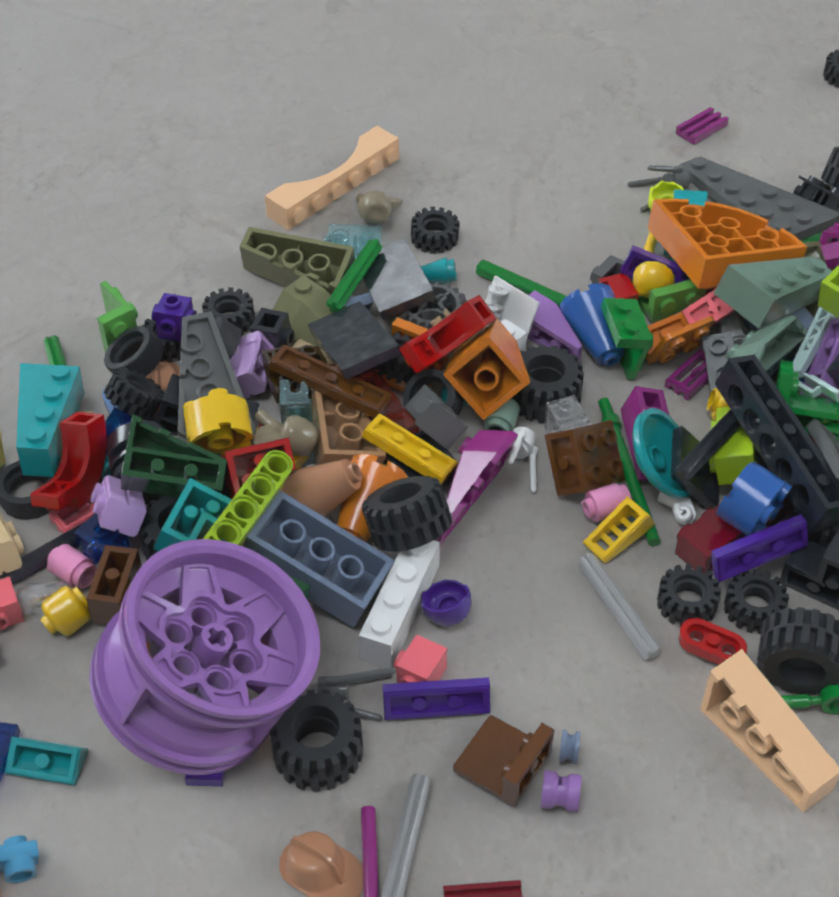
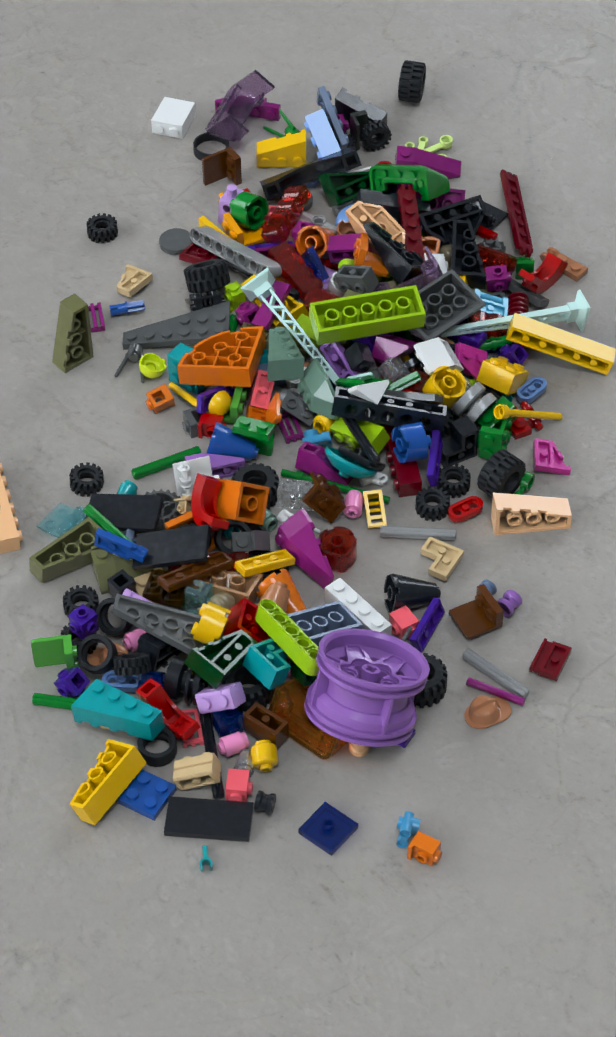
camera: 60 degrees left, 0 degrees up
(45, 760) = (353, 797): teal slope -> none
(75, 353) = (71, 682): none -> dark purple brick
(319, 293) = (119, 546): none -> blue hinge
(375, 206) = (44, 495): dark tan piece -> none
(407, 513) = (318, 578): black tyre -> none
(446, 602) = (374, 594): dark purple hair -> none
(480, 643) = (408, 592): none -> black cone
(501, 519) = (339, 547): none -> clear red brick
(594, 663) = (445, 557): none -> tan plate
(619, 230) = (160, 394): none -> orange brick
(632, 109) = (73, 334): none -> olive wedge
(690, 406) = (313, 436): none -> dark azure plate
(742, 142) = (127, 307): none -> blue axle
(778, 394) = (371, 392): none -> white slope
(791, 129) = (133, 280): none -> tan wing

